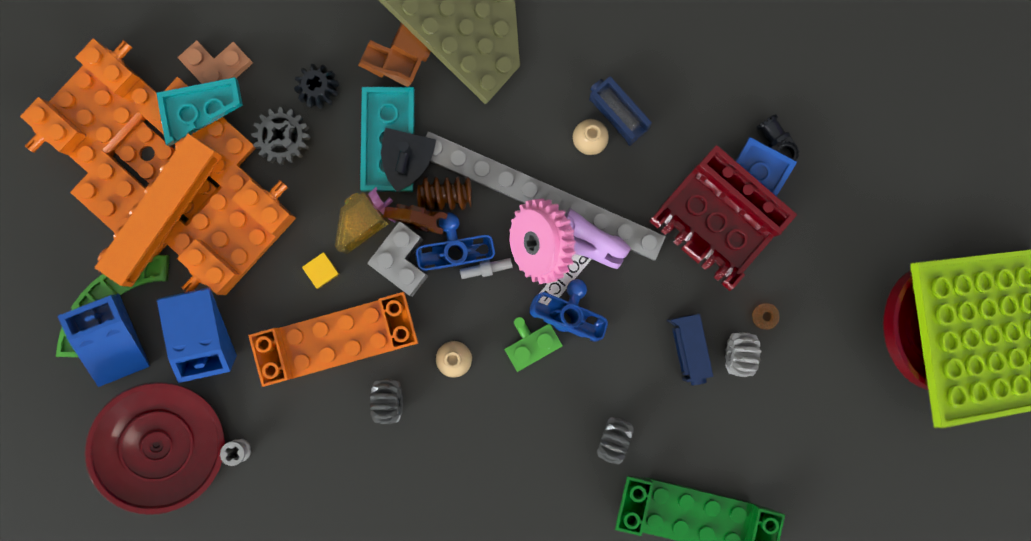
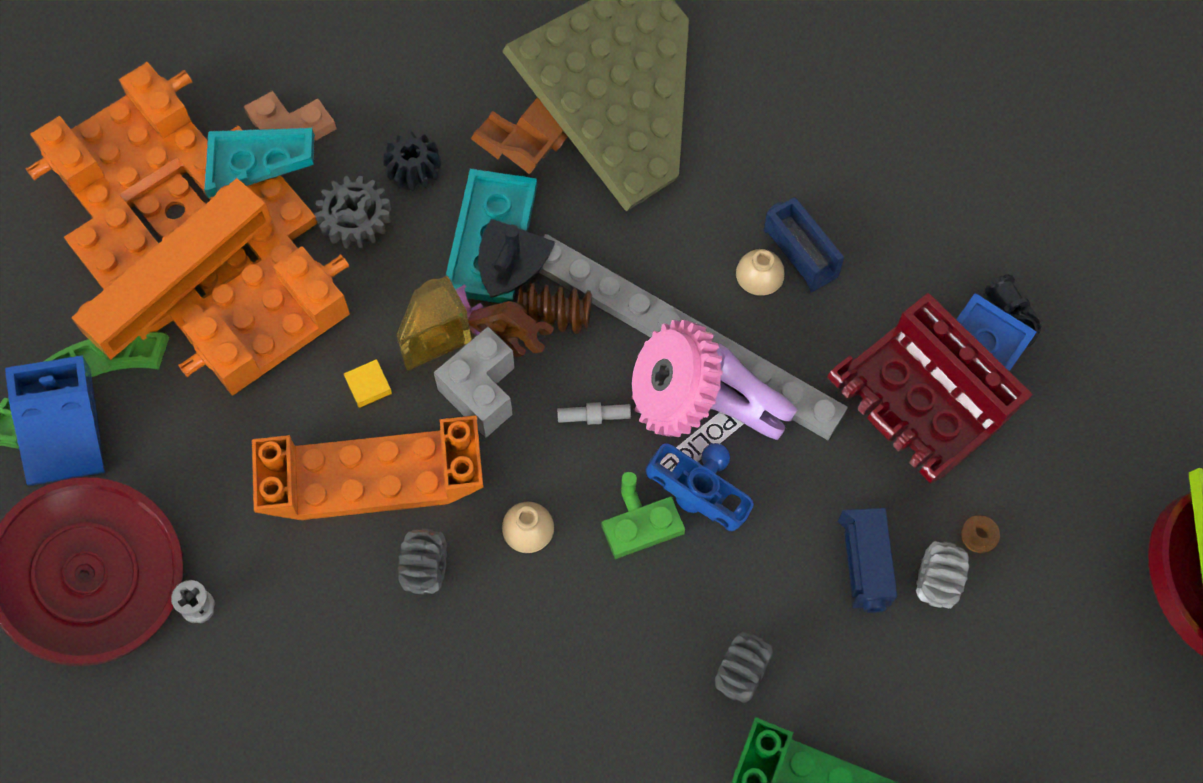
camera: 15 degrees right, 20 degrees down
(195, 335) = (180, 429): blue slope -> none
(439, 254) = (569, 376): blue piece -> none

